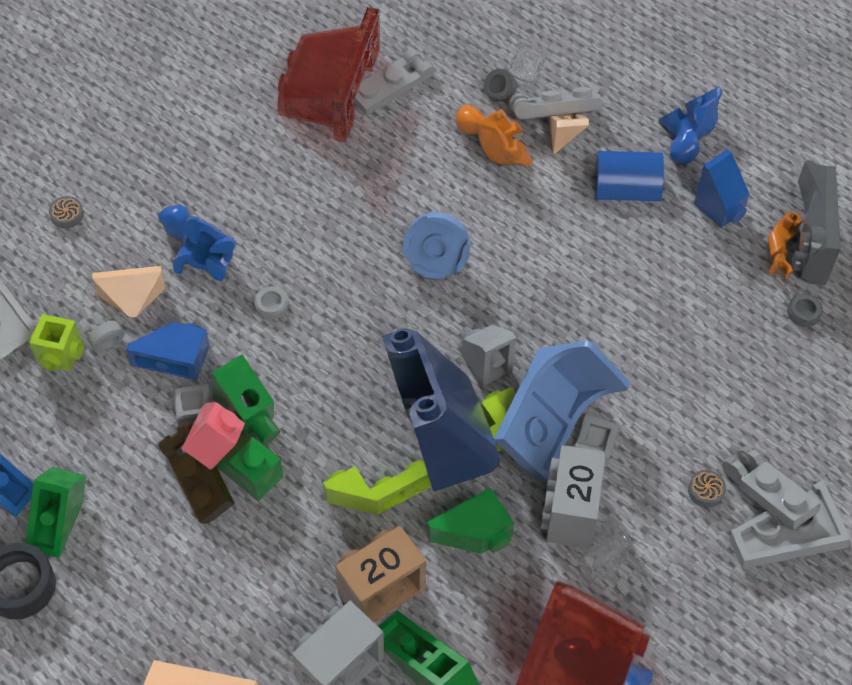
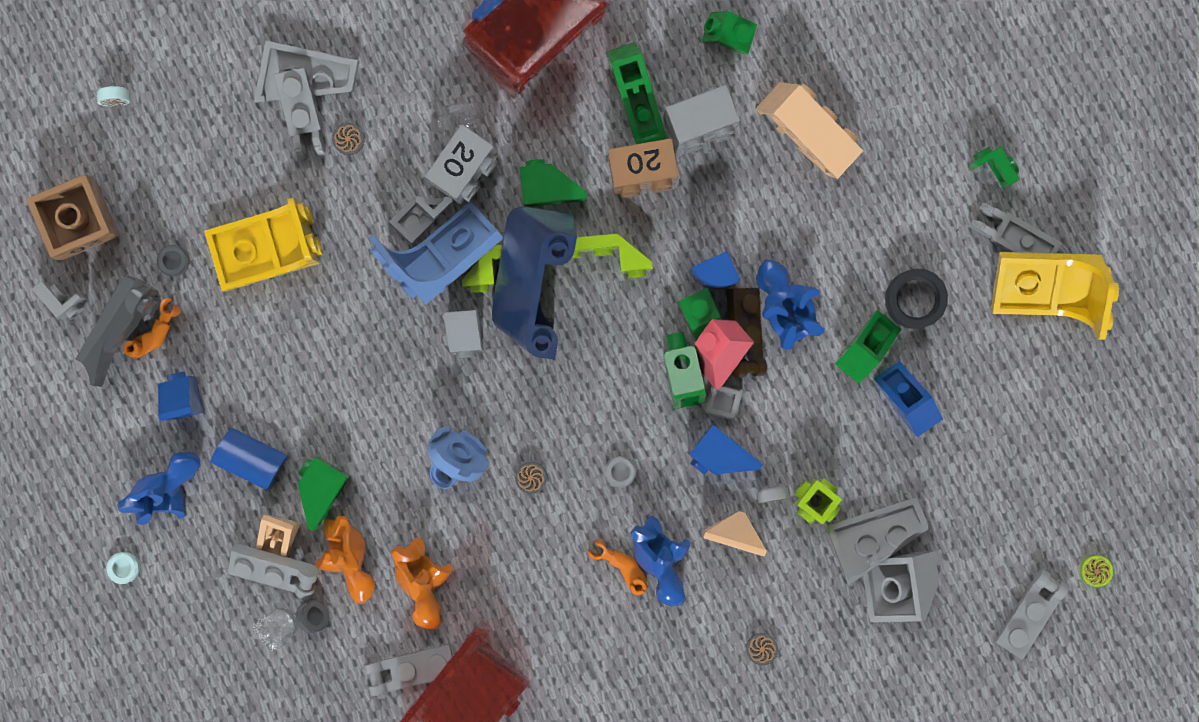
camera: 150 degrees left, 30 degrees up
(160, 511) = (787, 306): none -> blue animal
(236, 230) = (626, 564): none -> orange arm
(252, 503) = (716, 272): none -> blue brick
(357, 265) = (531, 477): none -> tile
(422, 144) = (419, 580): none -> orange animal
(551, 177) = (319, 489): none -> green slope
(686, 63) = (123, 567): none -> light aqua tile
(725, 353) = (264, 246): none -> yellow bracket

